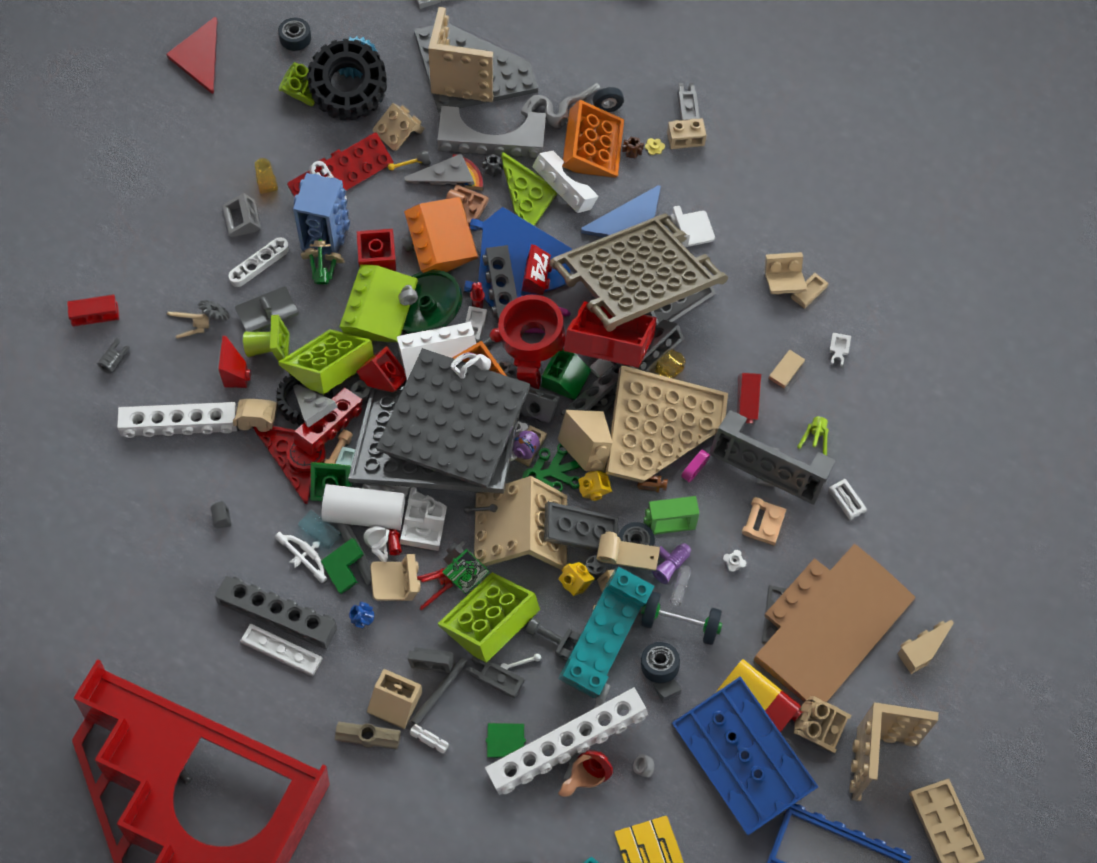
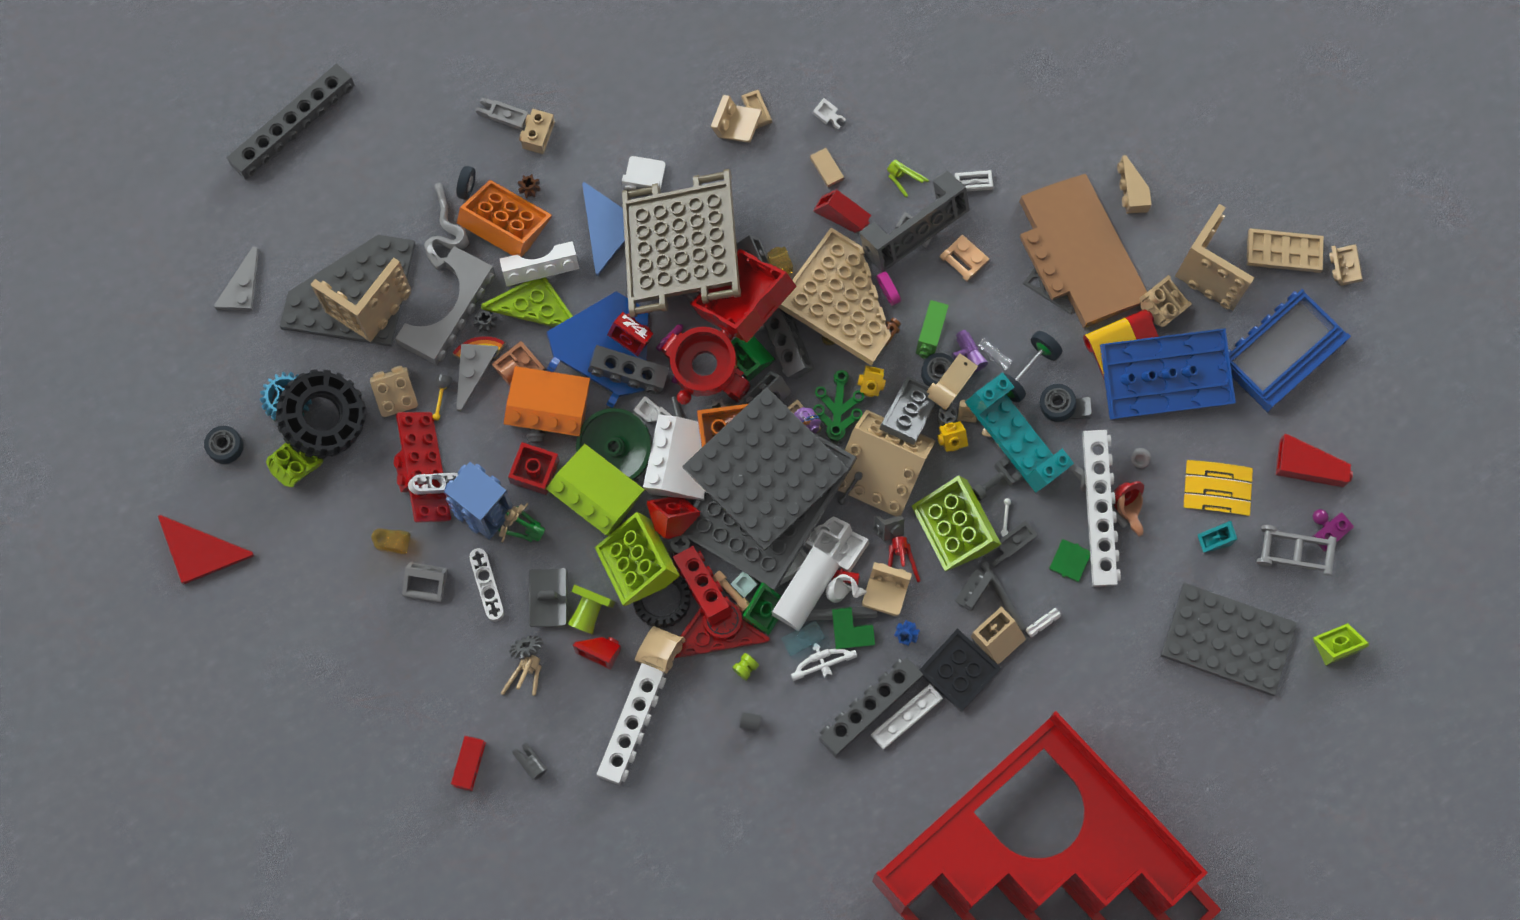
camera: 65 degrees left, 10 degrees up
(270, 490) = (745, 666): none -> lime wheel
(313, 404) = (685, 590): light grey wing -> none
(346, 678) = (959, 670): none -> black plate
(354, 734) = (1015, 682): dark tan piece -> none
(408, 295) = (607, 458): light grey tile -> none
(466, 571) = (907, 525): piece -> none
(477, 295) = (629, 397): red axle -> none
(478, 360) = (725, 419): white piece -> none
(586, 438) = (831, 365): tan slope -> none
(654, 146) = (537, 169): light yellow plant -> none
(733, 566) = (990, 304): white plate -> none

